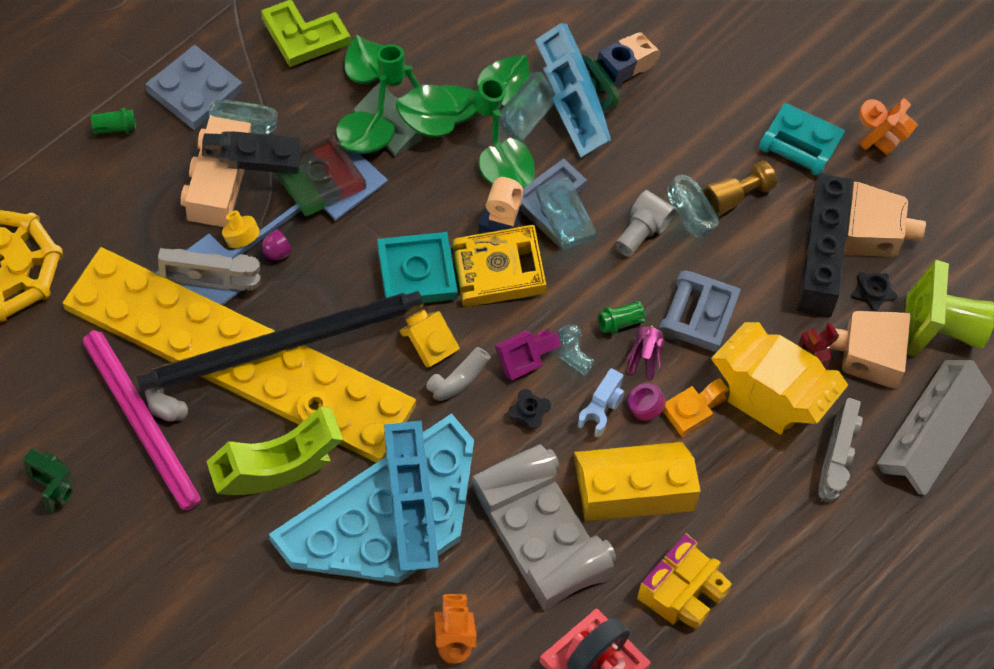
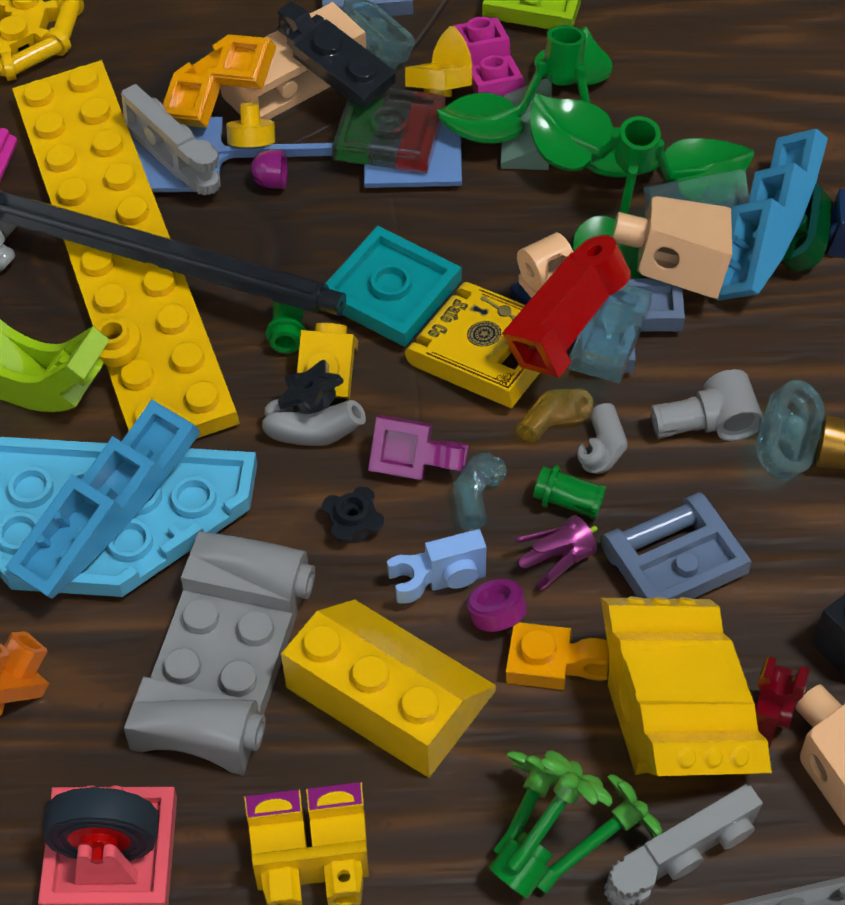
camera: 50 degrees right, 5 degrees down
(197, 196) = (234, 62): none -> light orange tile
(312, 115) = (449, 67): none -> yellow plate
(316, 90) = (491, 57): none -> dark pink slope
(388, 334) = (285, 328): none -> green pin
(452, 365) = (311, 389): none -> black plate
(541, 234) = (566, 305): none -> red leg
(552, 138) = (680, 243): none -> light nougat torso
(568, 276) = (555, 408): none -> clear yellow arm
(612, 277) = (609, 443): none -> light grey arm
(785, 510) = (521, 856): none -> plant

